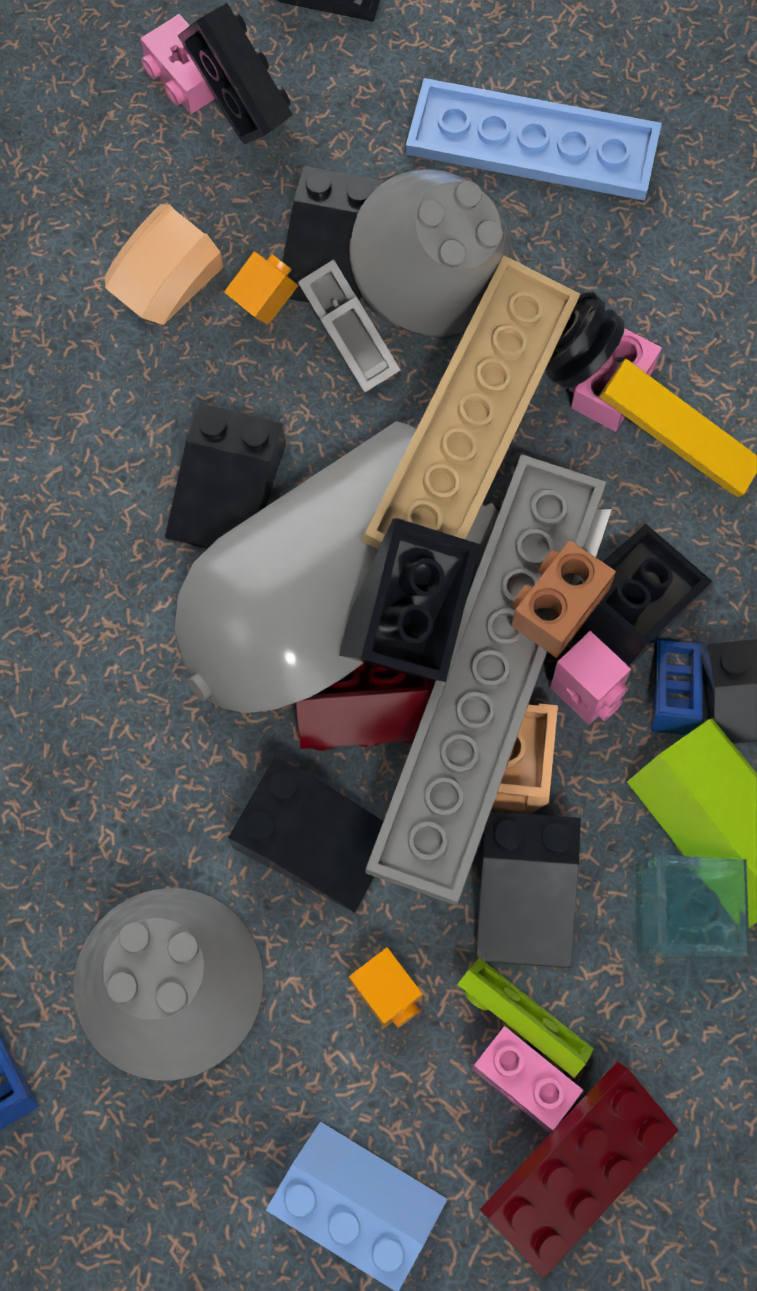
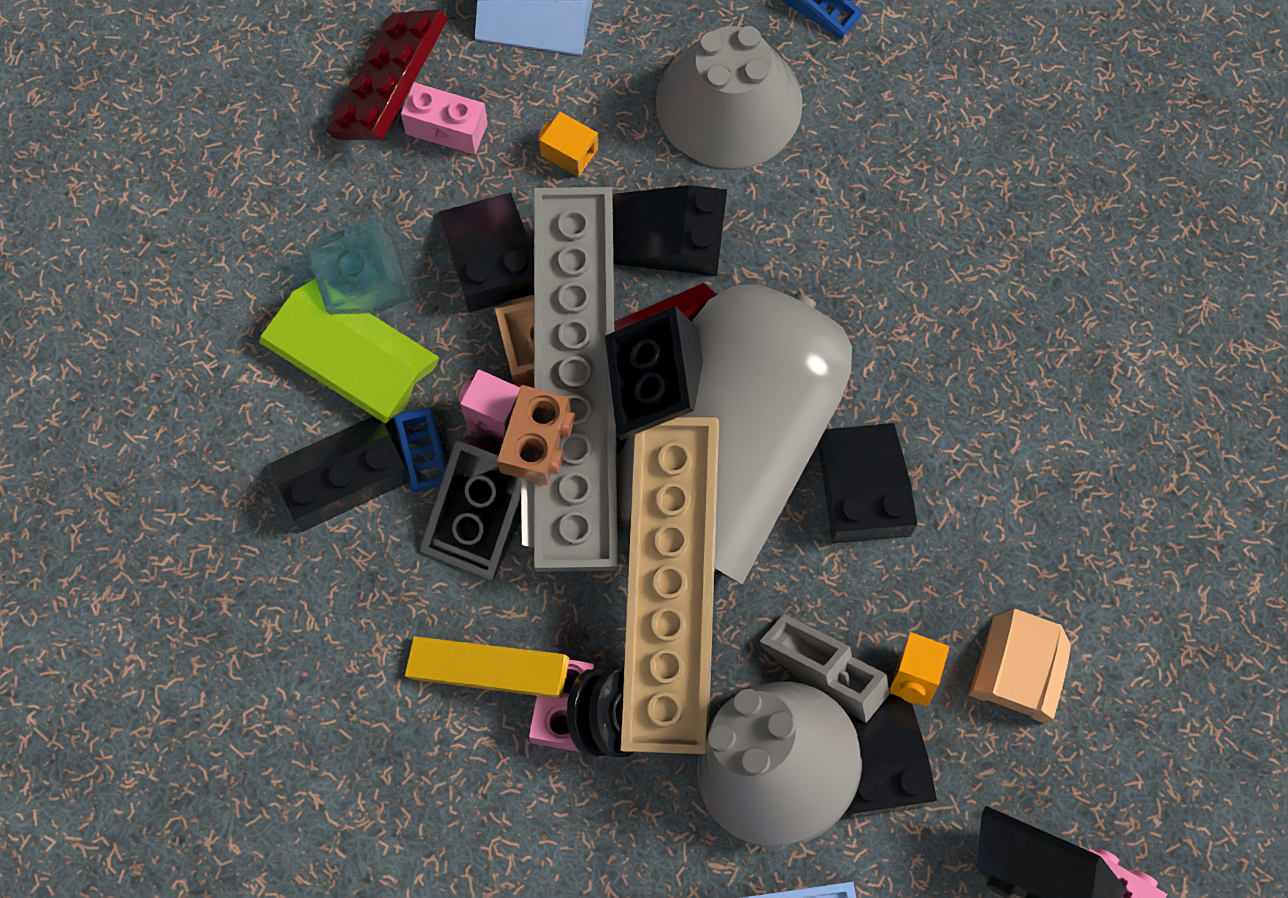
camera: 155 degrees right, 0 degrees up
(525, 1018) = (459, 160): lime plate -> none

